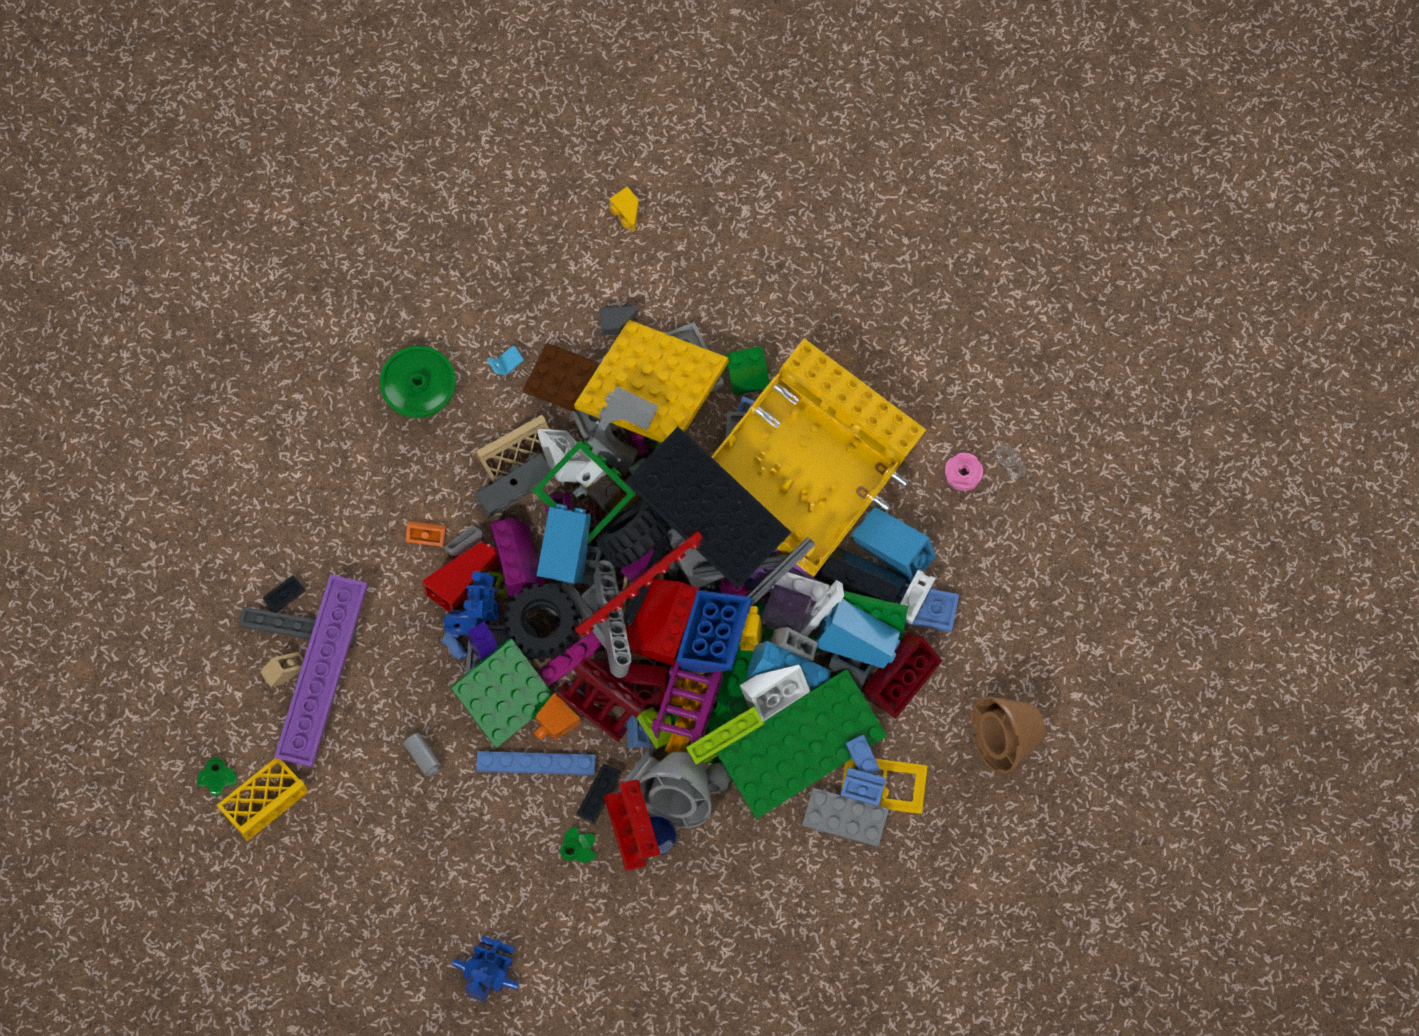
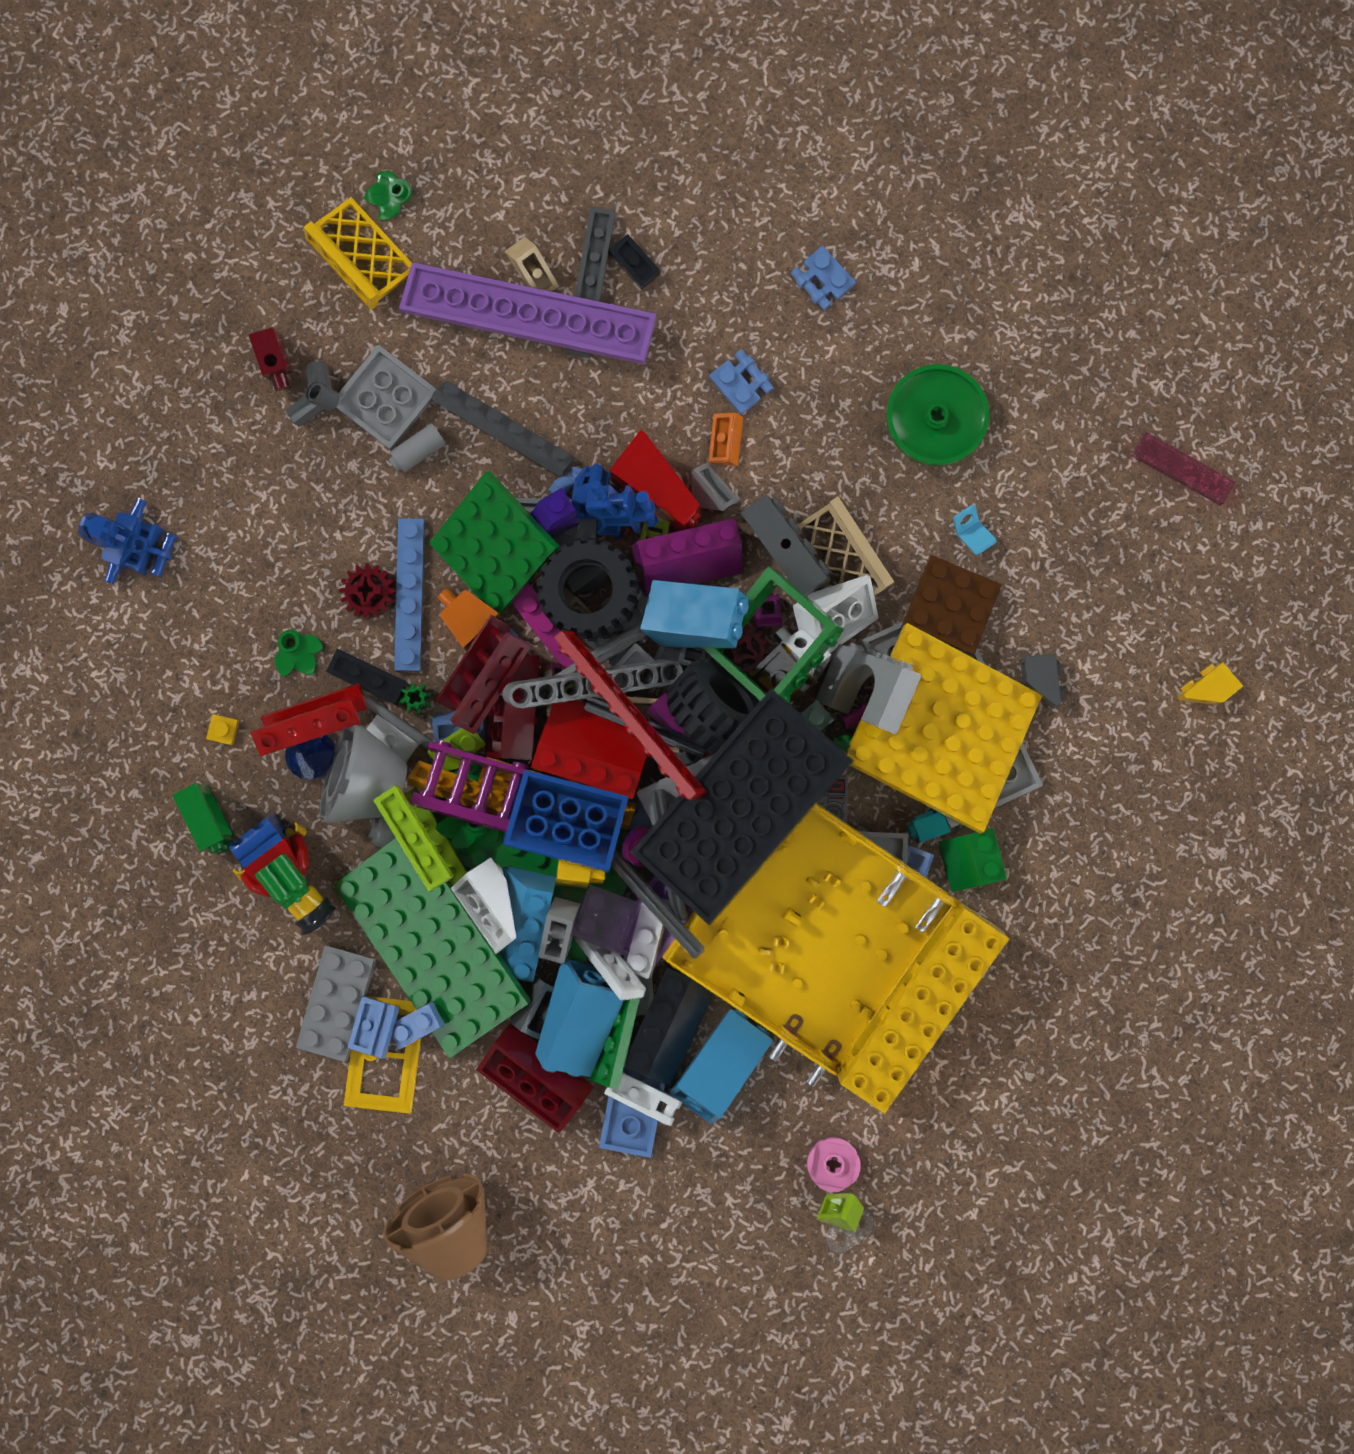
camera: 90 degrees right, 15 degrees up
(301, 456) = (828, 273): none -> medium blue plate
(338, 863) = (271, 342): none -> dark red torso
(380, 779) = (385, 397): none -> light grey plate
(384, 526) = (735, 387): none -> medium blue plate
(384, 832) = (318, 395): none -> dark grey piece
(409, 691) = (503, 428): none -> dark grey plate
(465, 219) = (1183, 469): none -> clear pink plate
(540, 791) = (367, 579): none -> dark red gear
(618, 761) = (416, 705): none -> green gear
(635, 902) = (222, 729): none -> yellow plate
(705, 906) = (204, 818): none -> green window
(722, 399) = (928, 826): none -> teal window
(743, 851) = (277, 870): none -> piece
(995, 465) = (841, 1211): none -> lime slope

